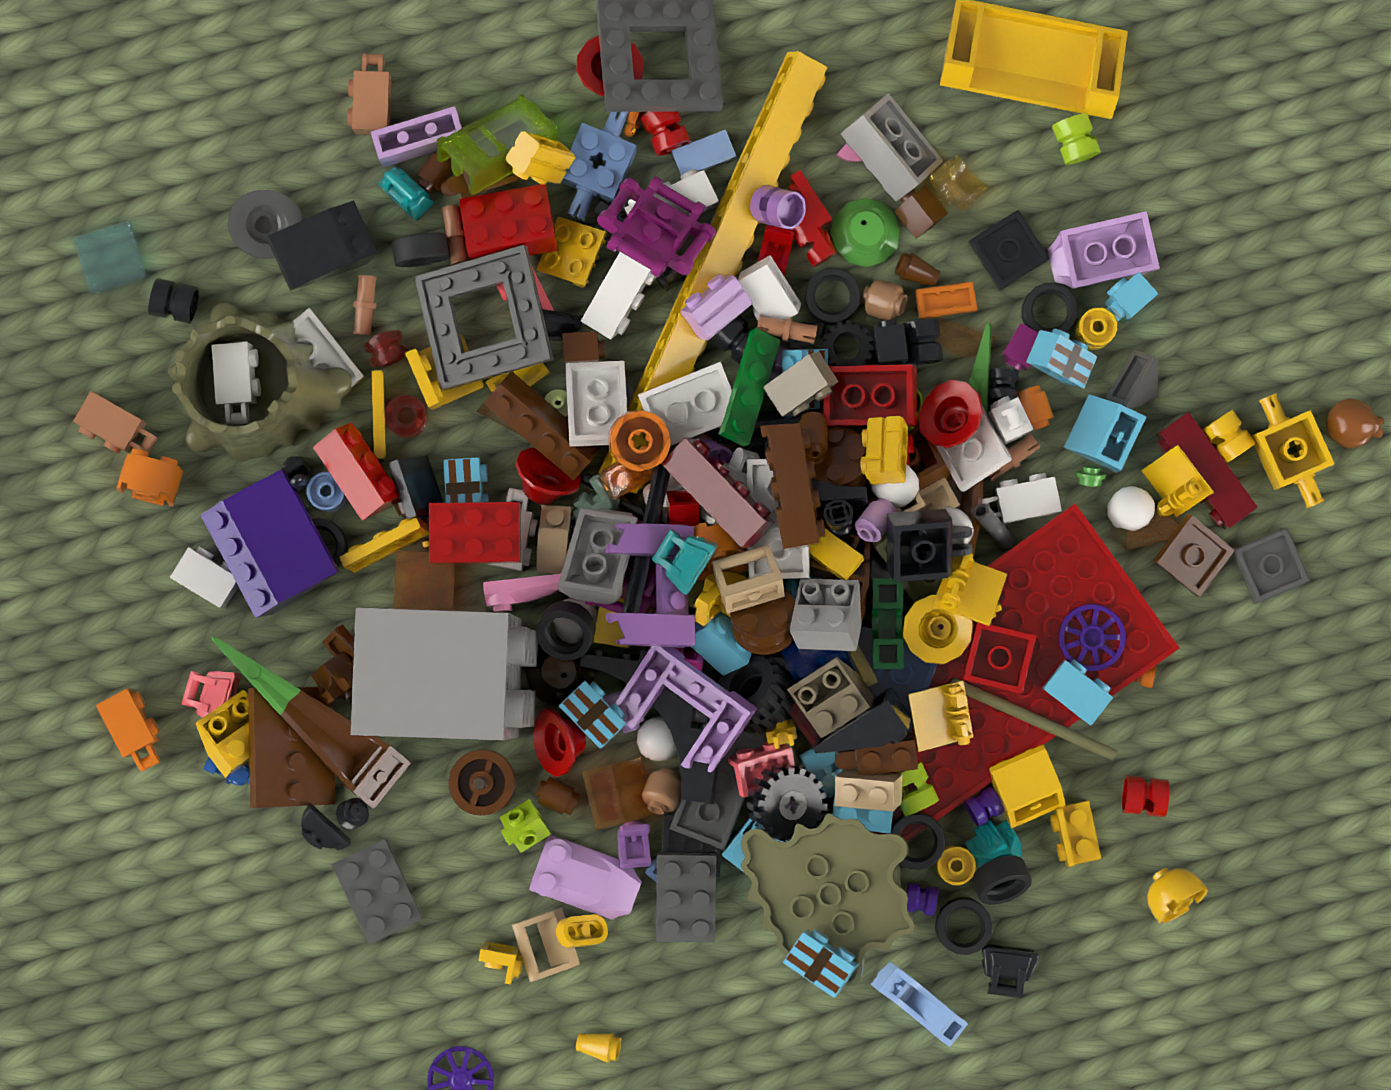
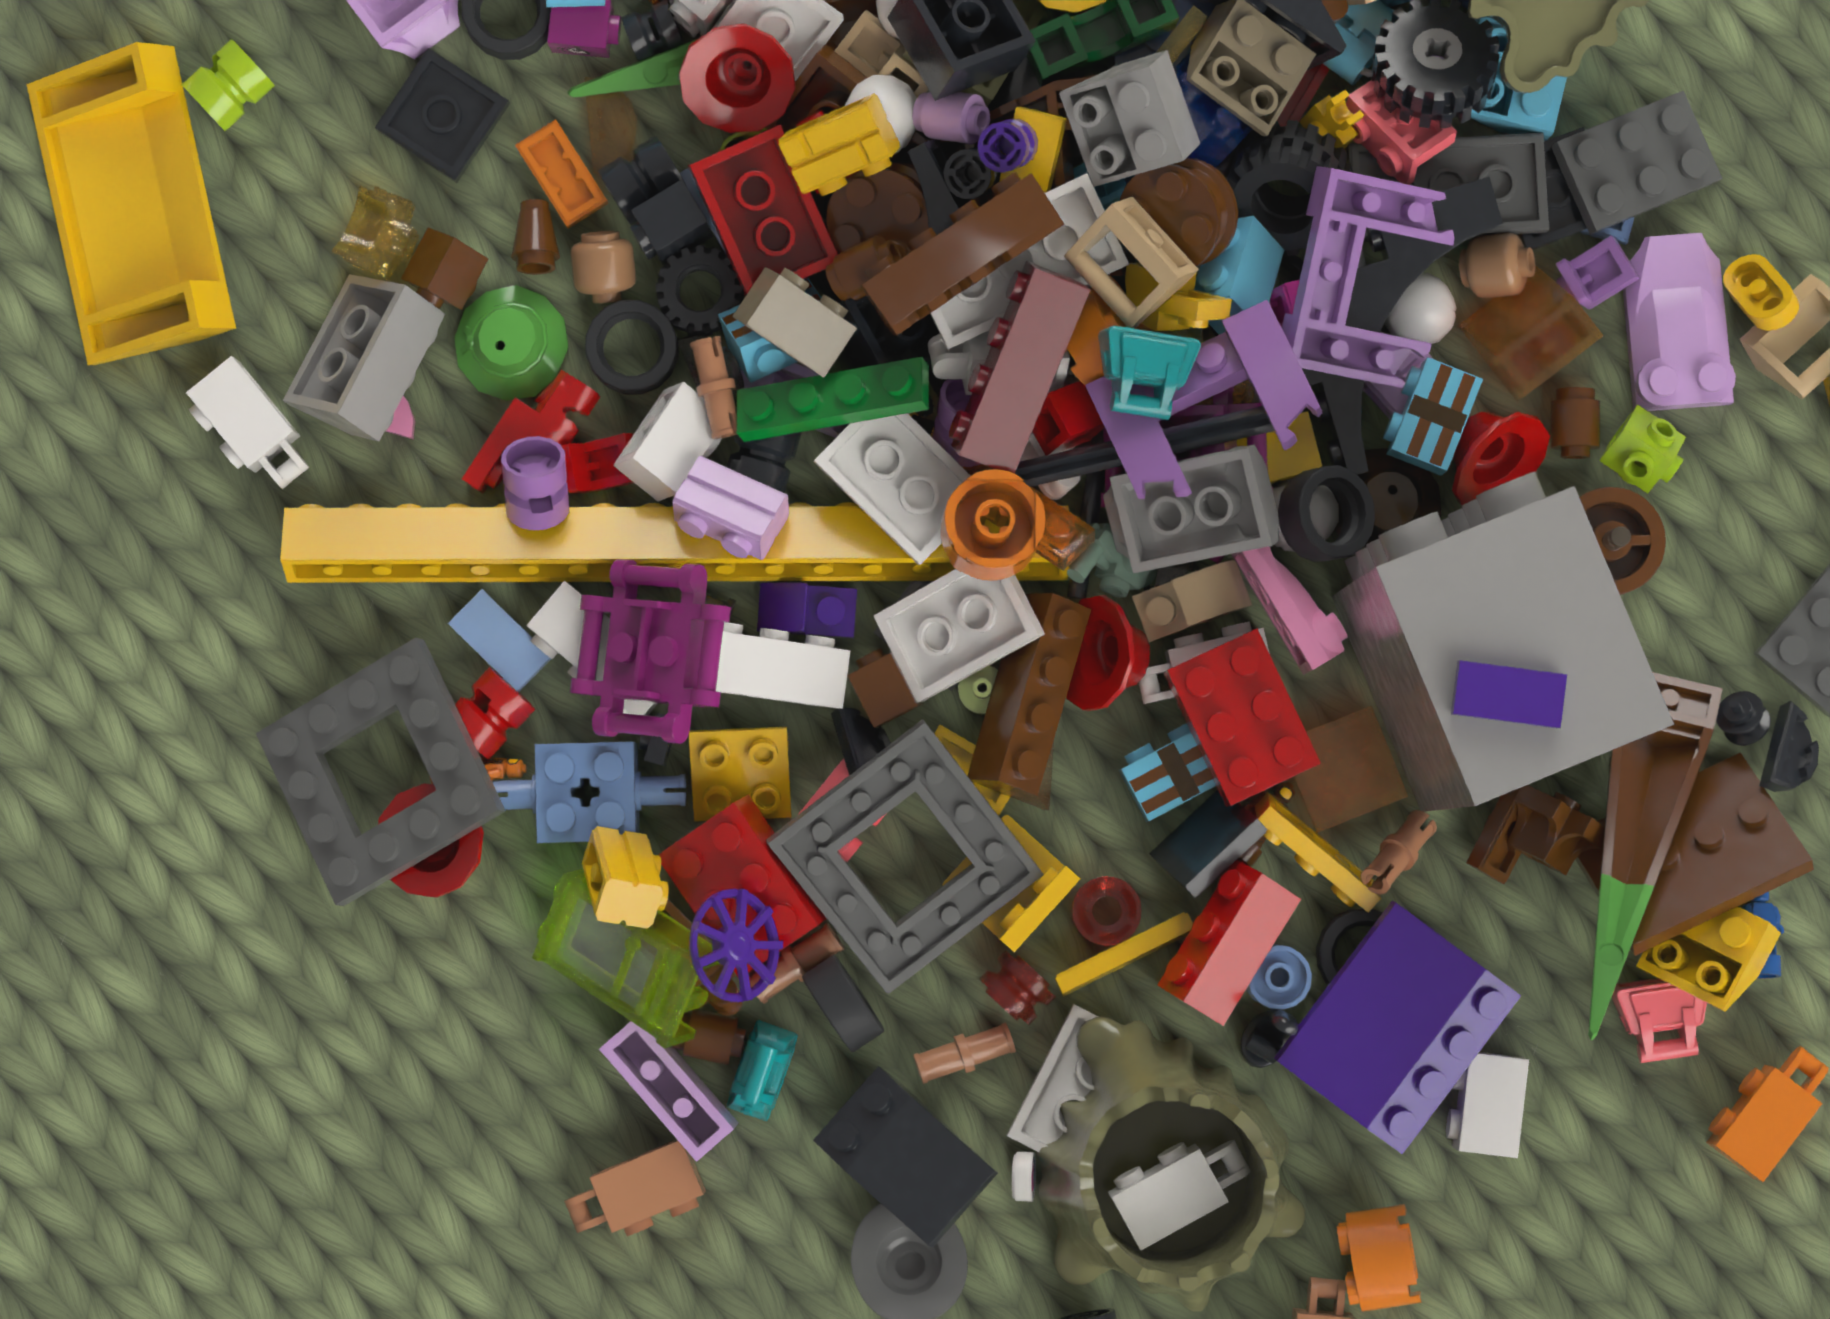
camera: 115 degrees left, 0 degrees up
(283, 307) = (1024, 1176): none -> white tile
(363, 587) = (1398, 852): none -> nougat pin
(406, 652) = (1509, 694): none -> dark purple tile
(474, 200) = (735, 945): none -> dark purple wheel
(644, 328) = (807, 609): none -> dark purple slope
(843, 548) = (1018, 144): none -> dark purple wheel
(885, 68) = (246, 421): none -> white brick

